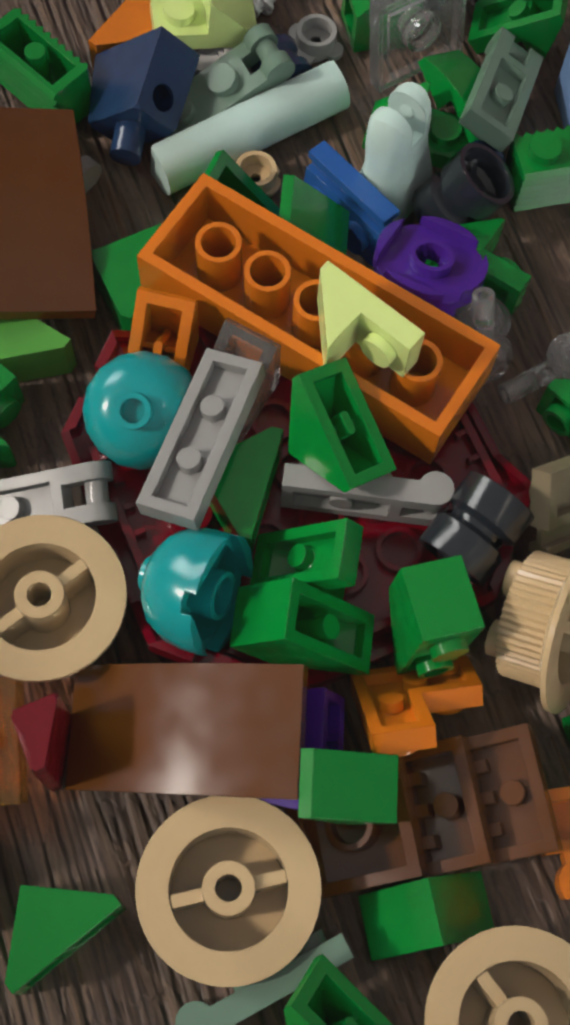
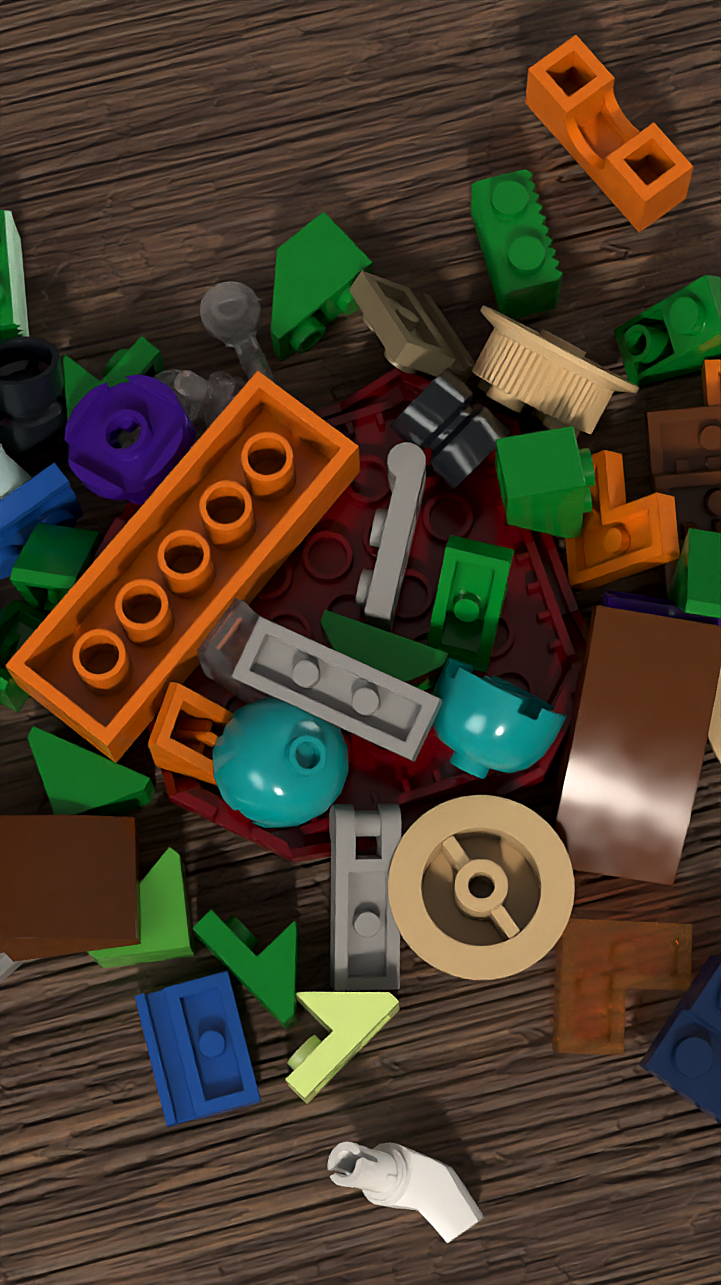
camera: 75 degrees left, 5 degrees up
(45, 737) = (635, 887): dark red slope -> none
(302, 625) = (539, 618): green slope -> none
(335, 428) = (344, 548): green slope -> none
(354, 314) = (220, 516): yellowish green slope -> none

